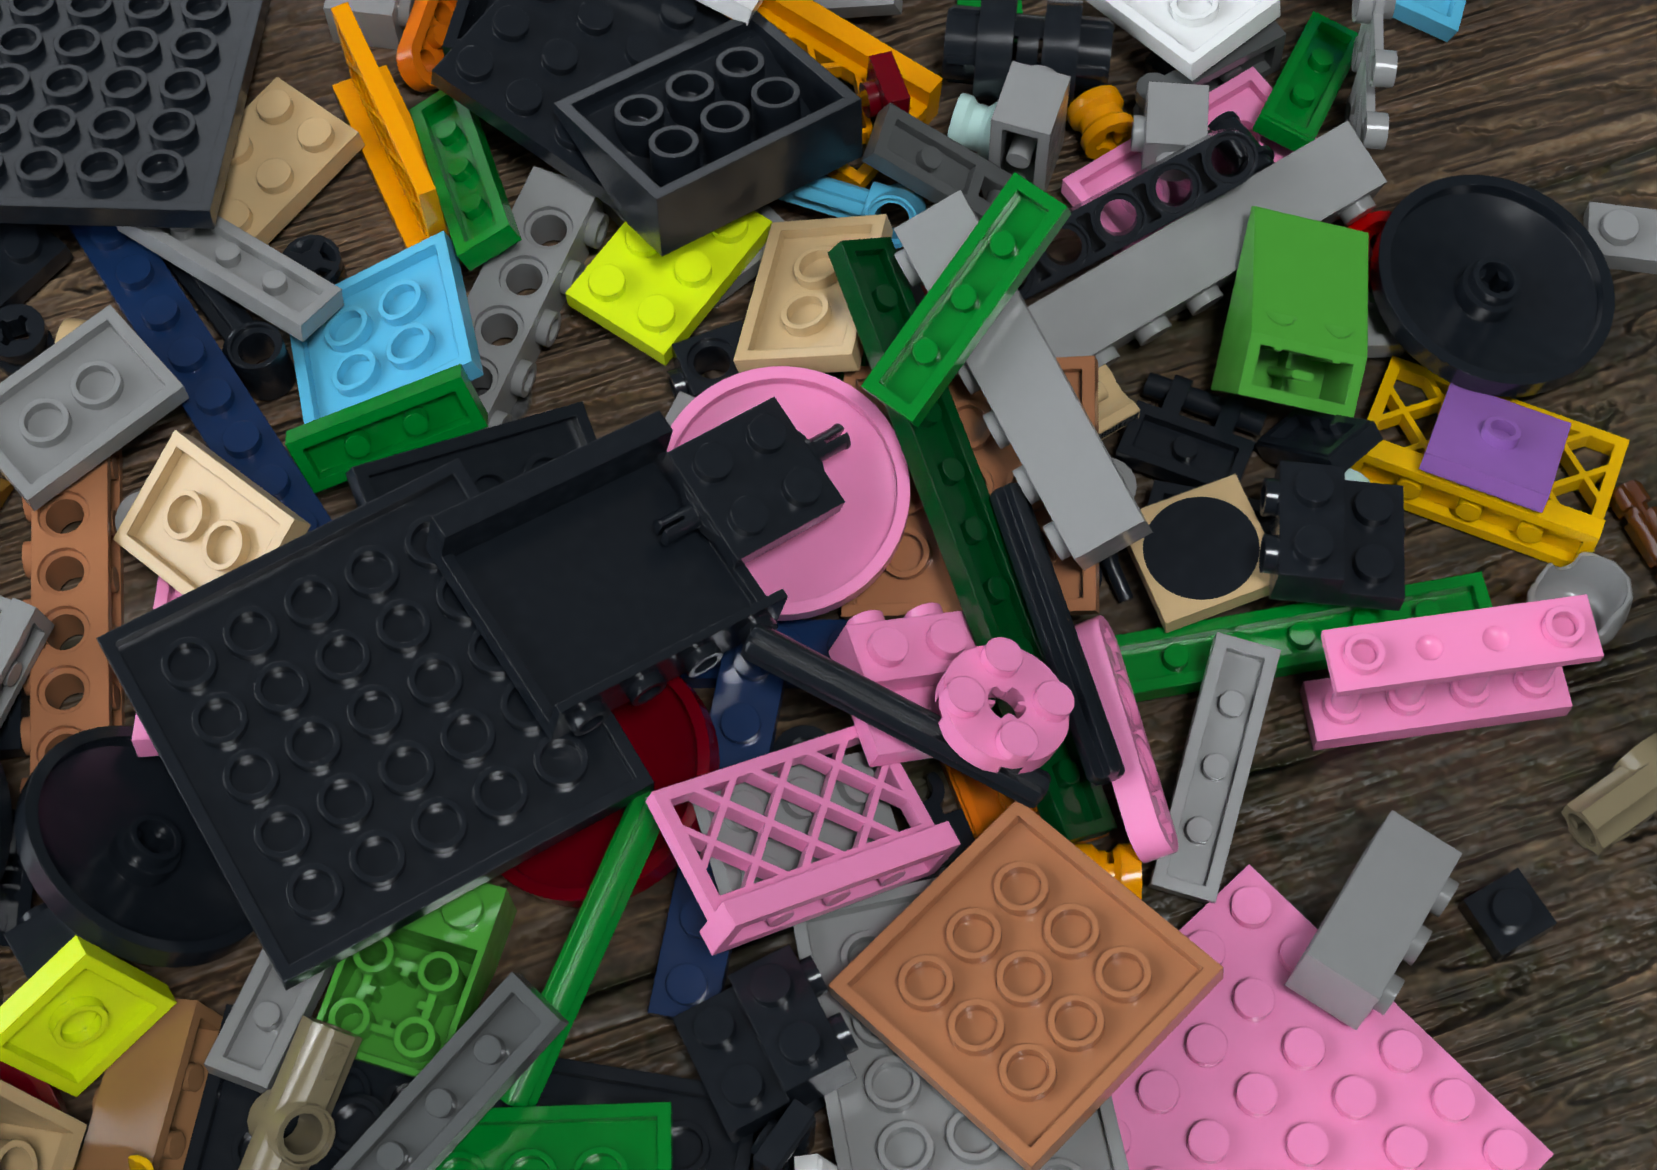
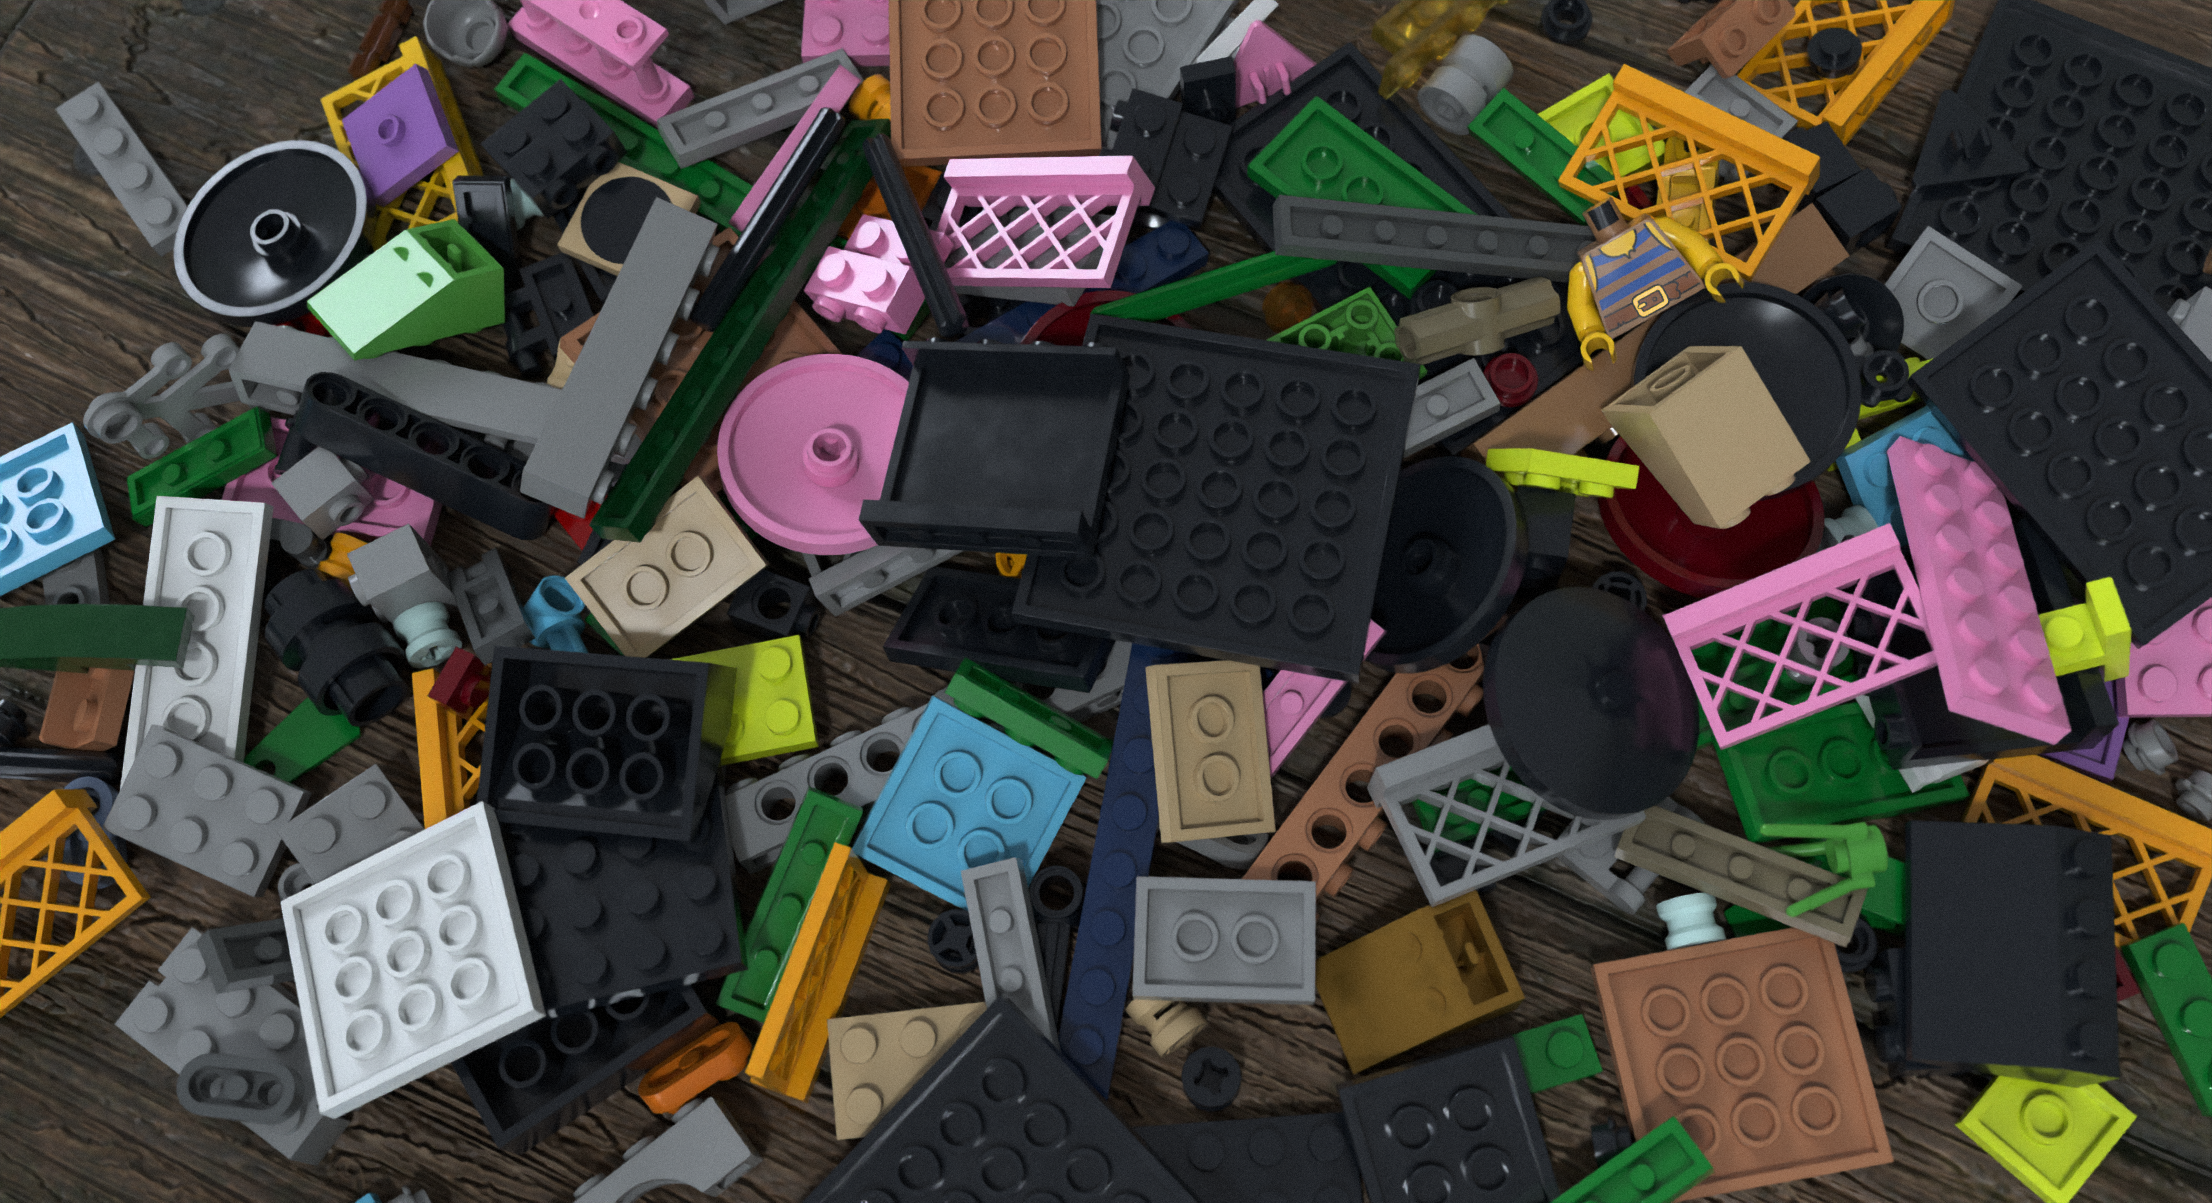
camera: 130 degrees left, 5 degrees up
(220, 1115) = (1512, 379): none -> dark red plate
(752, 483) = (846, 443): black plate -> none
(966, 299) = (602, 394): green plate -> none
(1022, 681) = (834, 167): bright pink plate -> none

